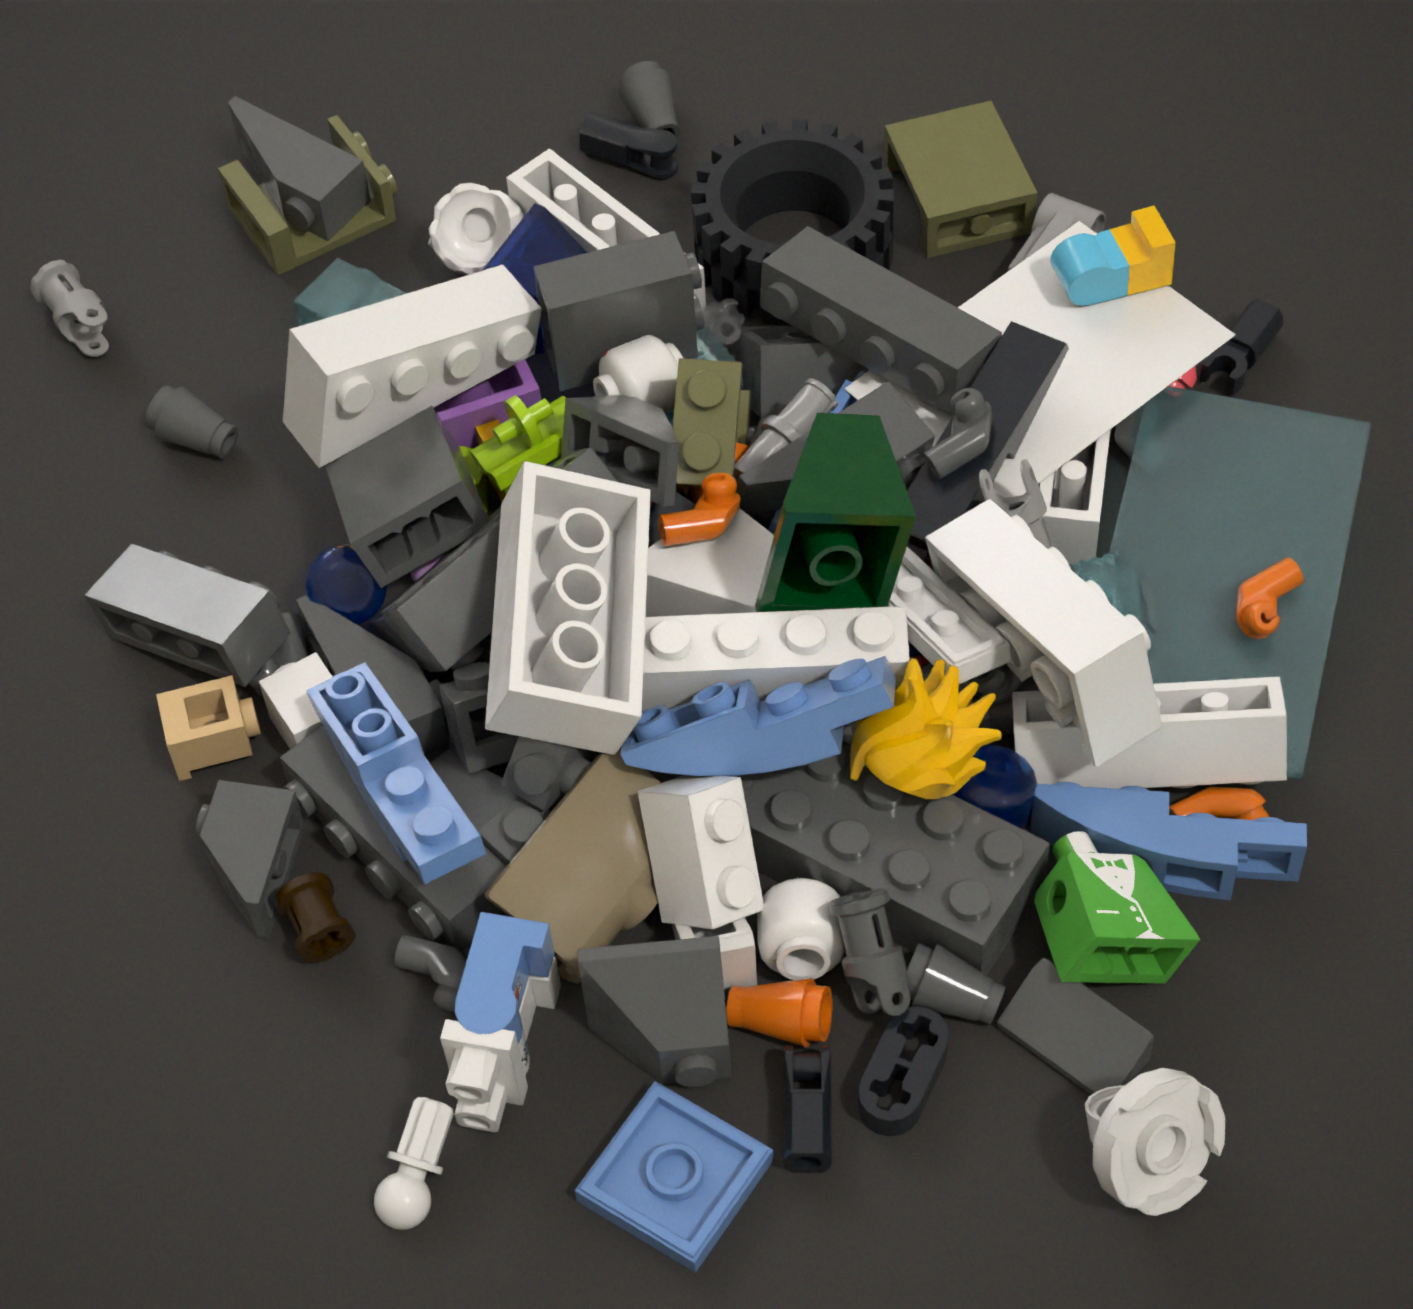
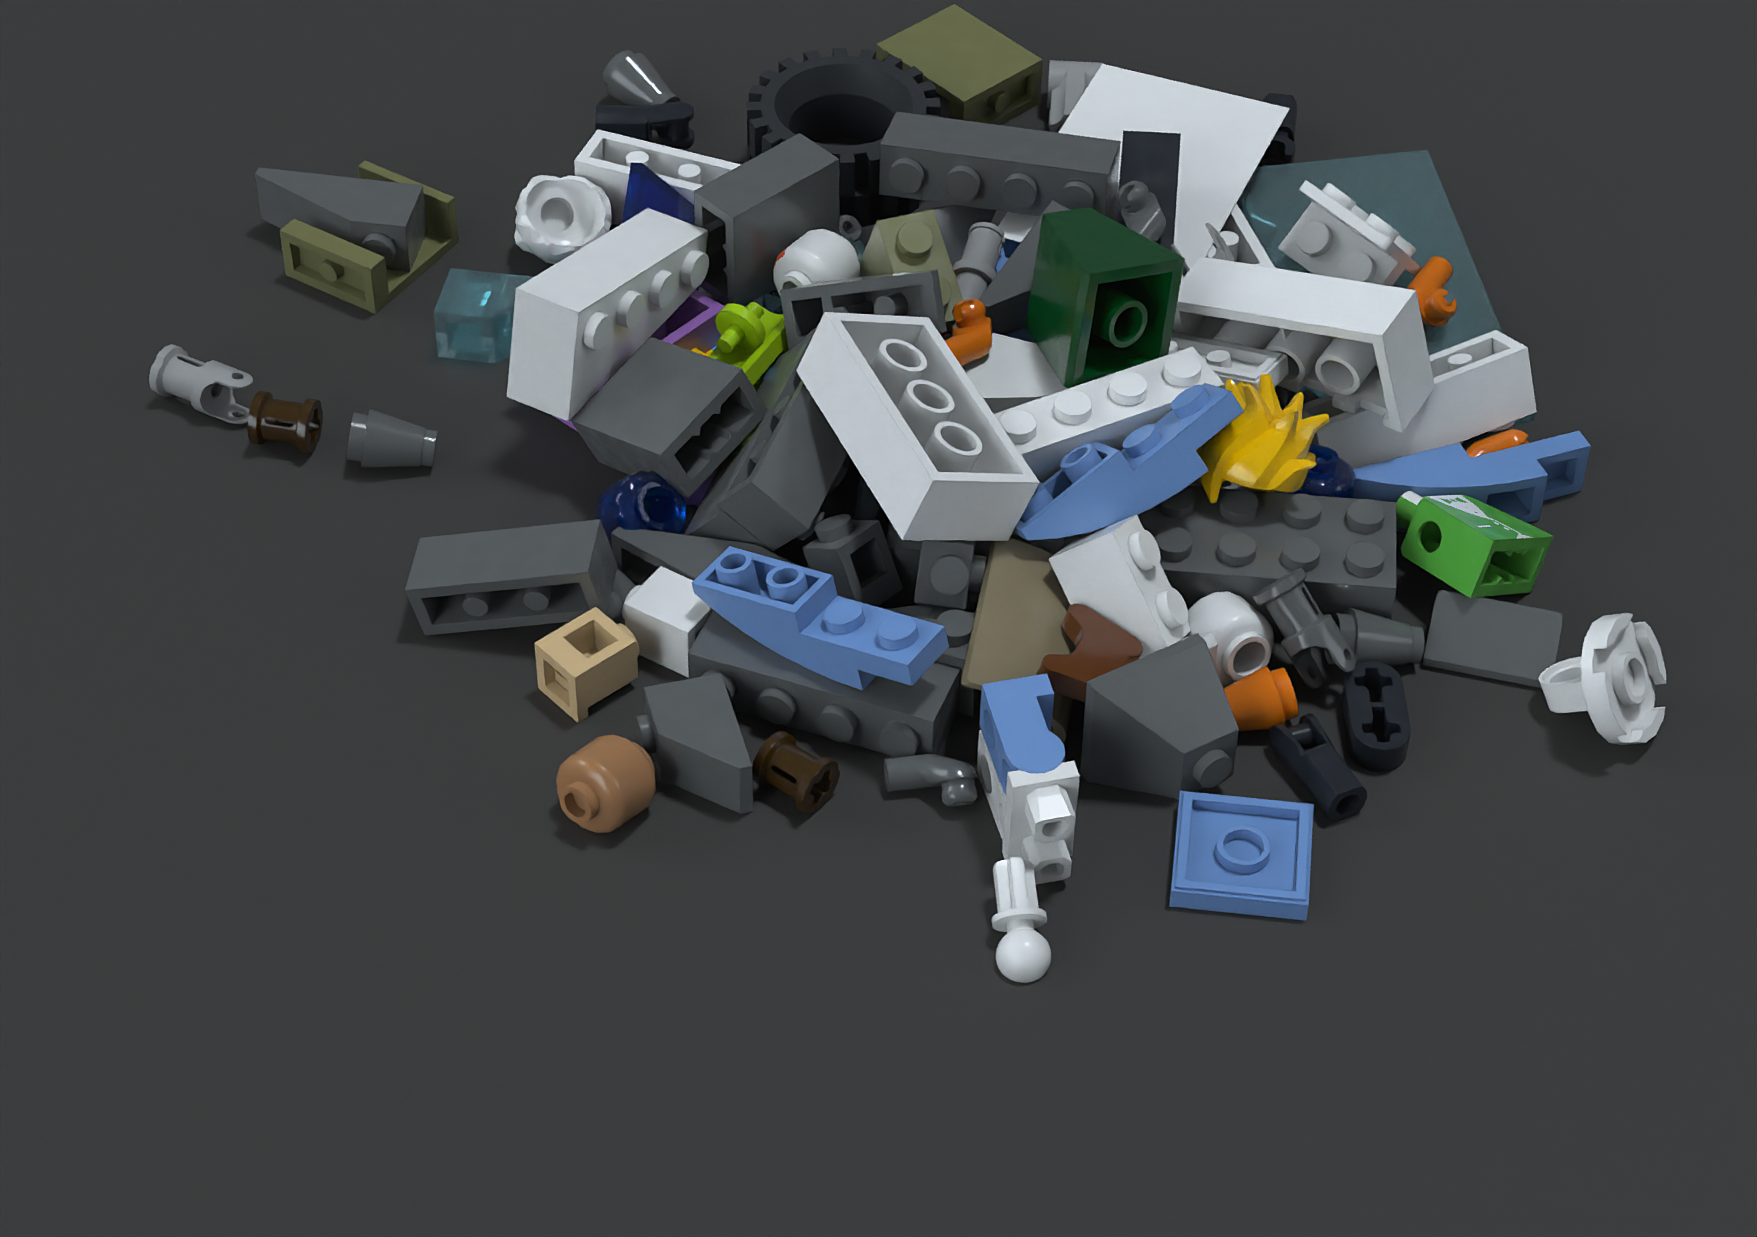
camera: 30 degrees left, 10 degrees down
(116, 370) = (264, 422): none -> dark brown bush
(141, 864) = (606, 783): none -> medium nougat head
(640, 913) = (1099, 649): none -> reddish brown piece
(1116, 260) = (1166, 74): leg -> none
(1202, 519) = (1345, 241): none -> white bracket

